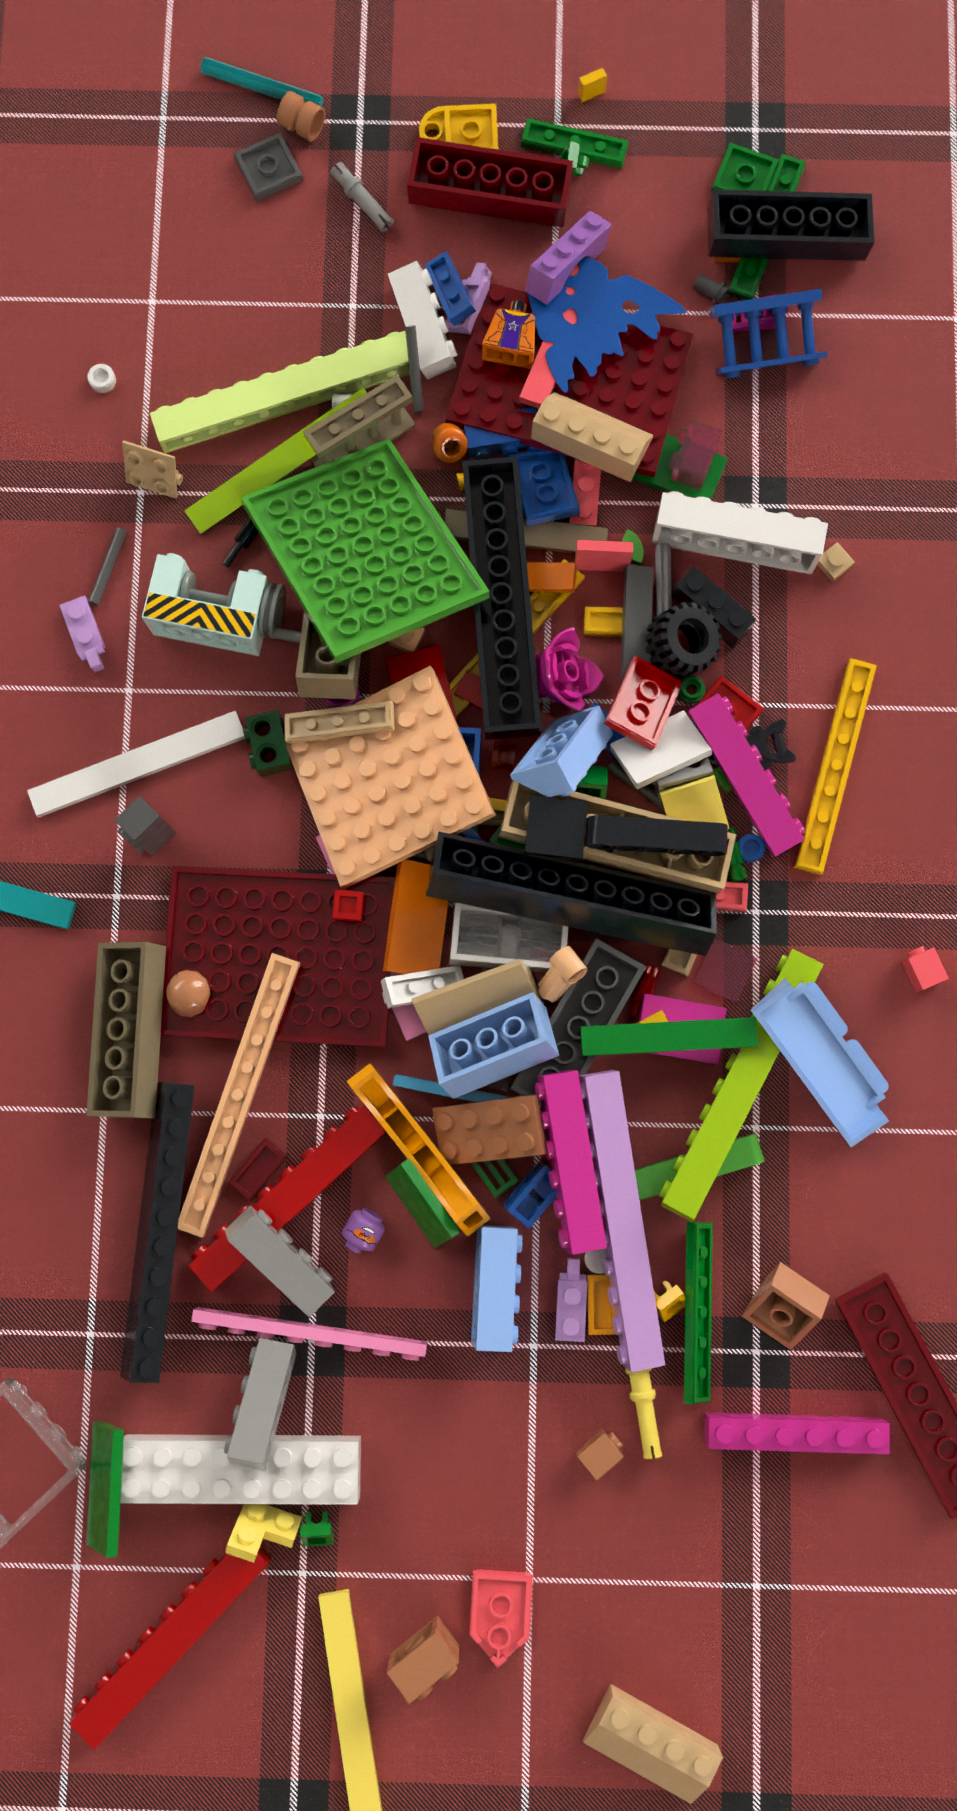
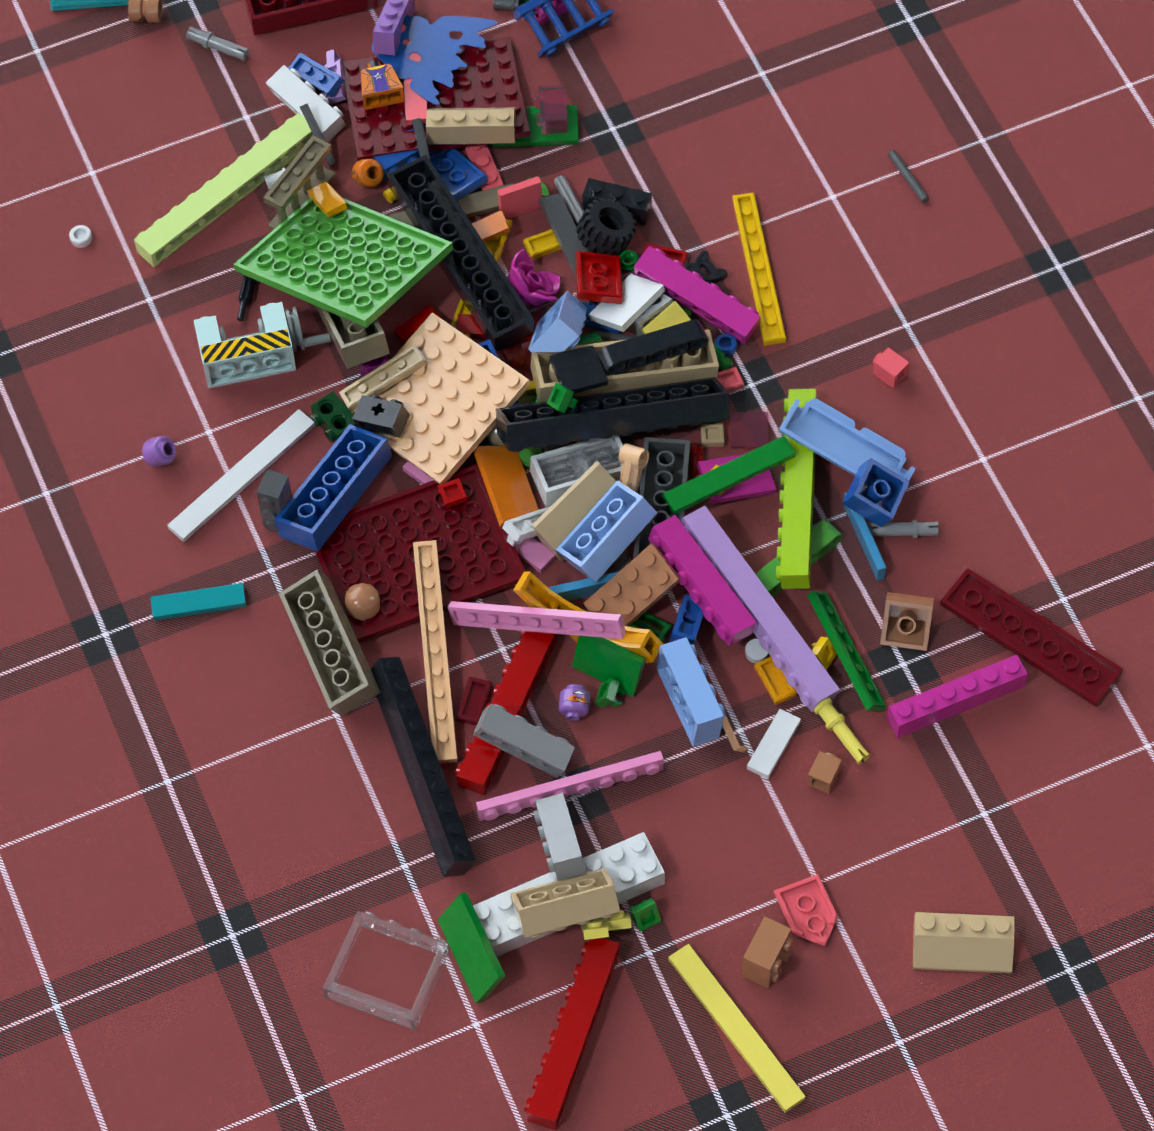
camera: 25 degrees left, 20 degrees down
(57, 695) = (159, 451): none -> medium lavender head
(84, 631) = (155, 405): lavender hinge -> none
(107, 566) = (150, 356): dark grey bar -> none
(151, 469) = (153, 276): tan hinge -> none
(219, 836) = (333, 487): none -> blue brick
(222, 1500) = (565, 903): none -> tan slope
(258, 475) = (238, 246): lime tile -> none
(268, 166) = (135, 51): dark grey tile -> none
(319, 784) = (381, 415): none -> brick
(369, 1128) = (537, 619): none -> bright pink plate
(385, 459) = (327, 199): none -> light orange tile
(406, 1235) = (607, 693): none -> green tile
(410, 641) = (401, 311): light nougat plate -> none
(516, 860) = (561, 398): none -> green tile
(519, 1348) = (731, 736): none -> light nougat piece
(523, 431) = (420, 137): none -> dark grey tile
(561, 1385) = (773, 743): none -> white tile
(571, 1303) = (752, 688): lavender hinge -> none
(739, 532) = (610, 145): white brick -> none
(789, 1174) = (867, 542): none -> dark azure tile
(826, 1141) = (876, 492): none -> blue brick
(835, 562) = (689, 140): tan plate -> none
(848, 1189) = (905, 529): none -> light grey pin

